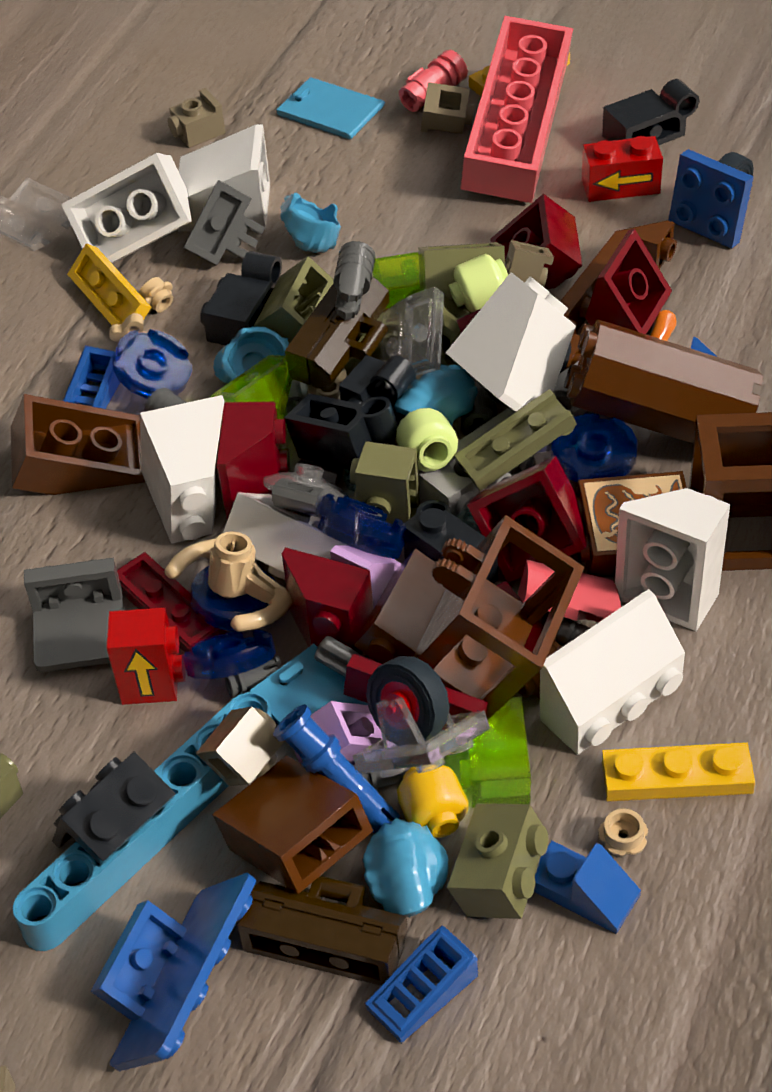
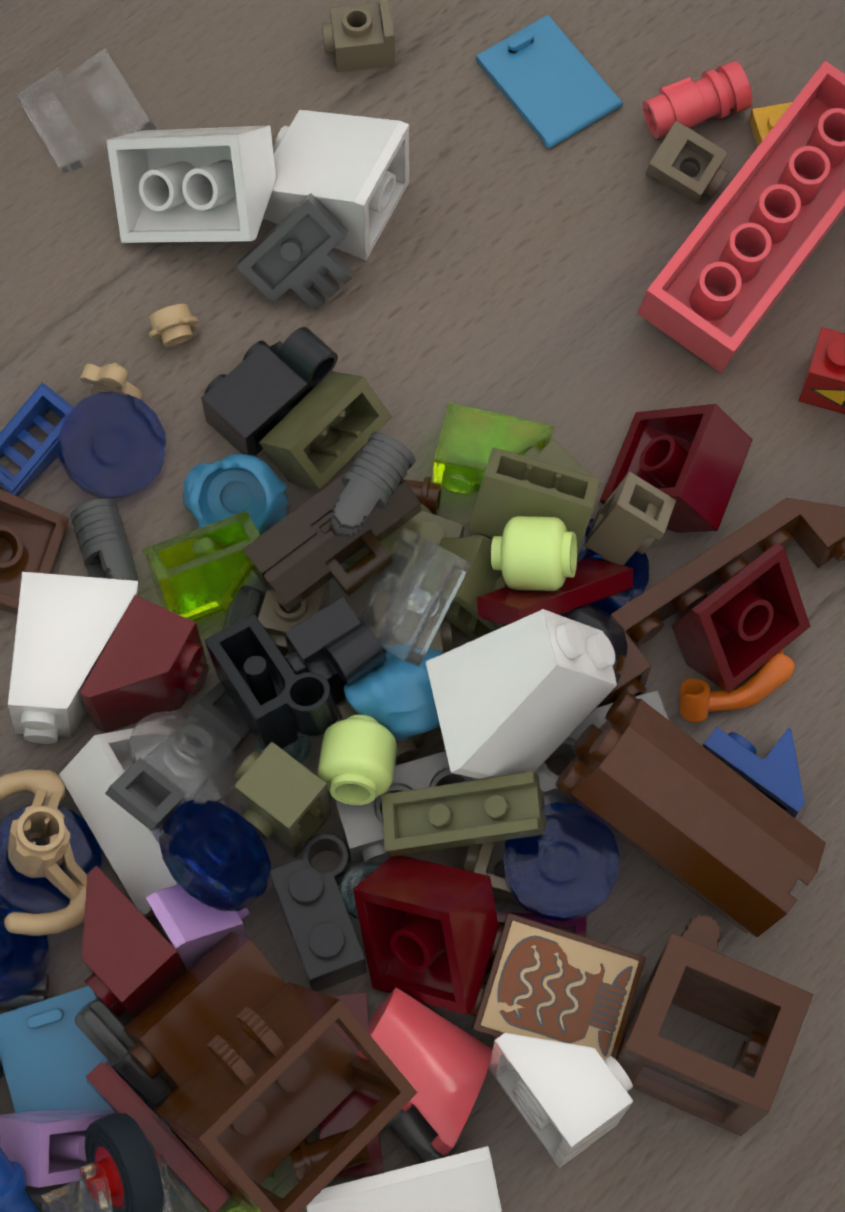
camera: 20 degrees right, 20 degrees up
(106, 286) = (117, 291): yellow plate -> none
(310, 226) = (413, 292): dark azure hair -> none

